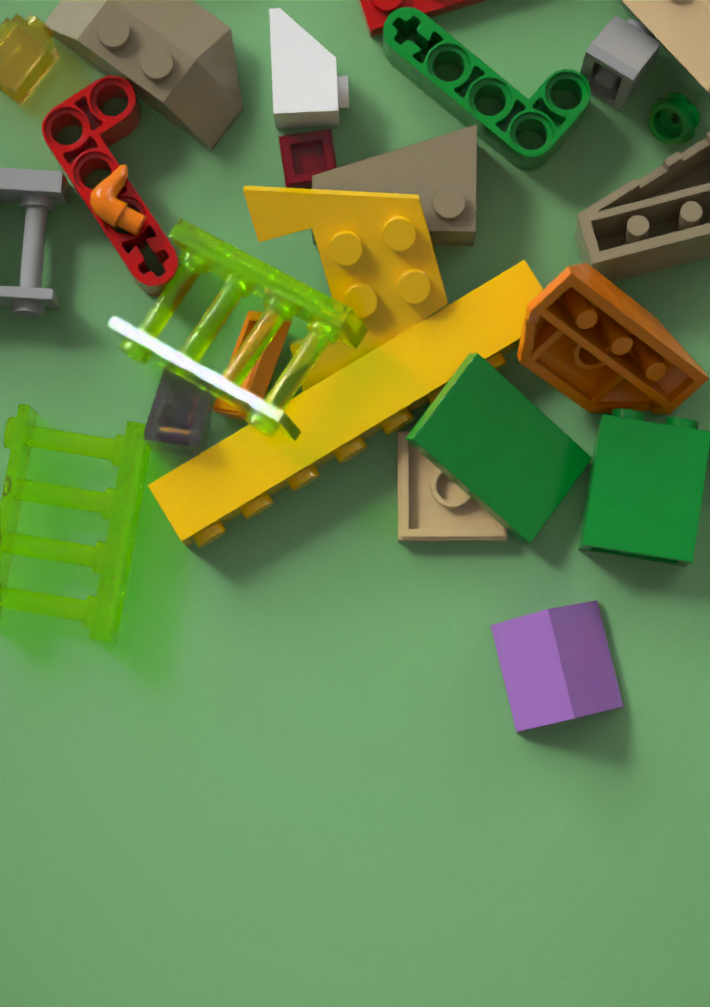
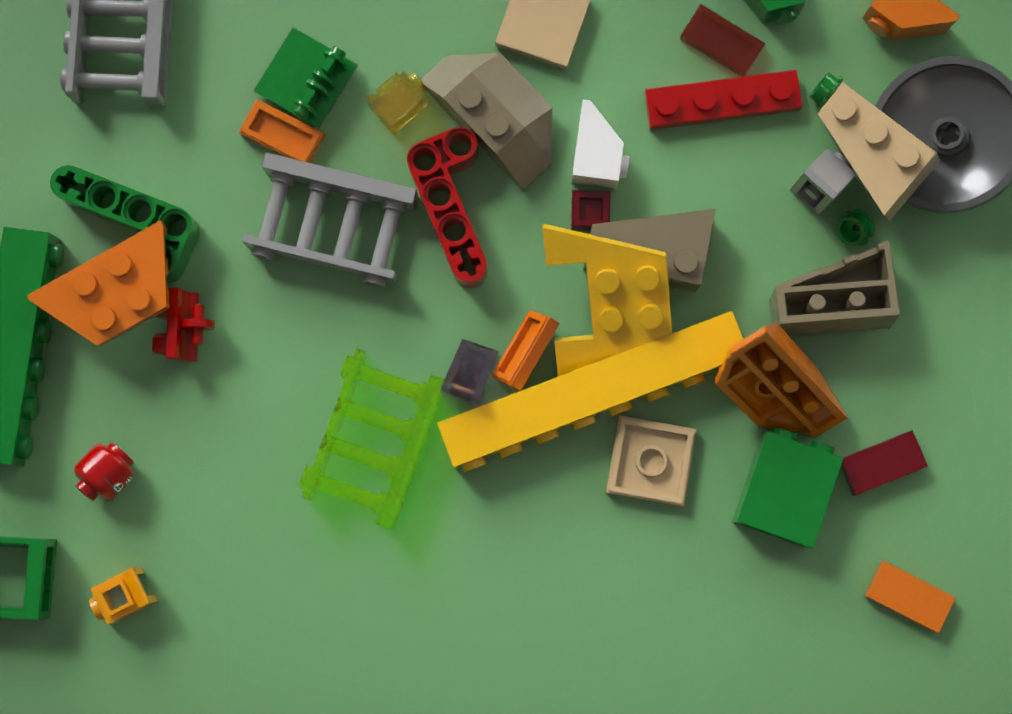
camera: 10 degrees right, 0 degrees up
(112, 210) = (445, 222): orange animal -> none
(241, 276) = (556, 309): clear neon green fence -> none
(481, 81) = (724, 177): green beam -> none
(499, 448) = (690, 441): green tile -> none
(556, 665) = (702, 603): medium lavender slope -> none

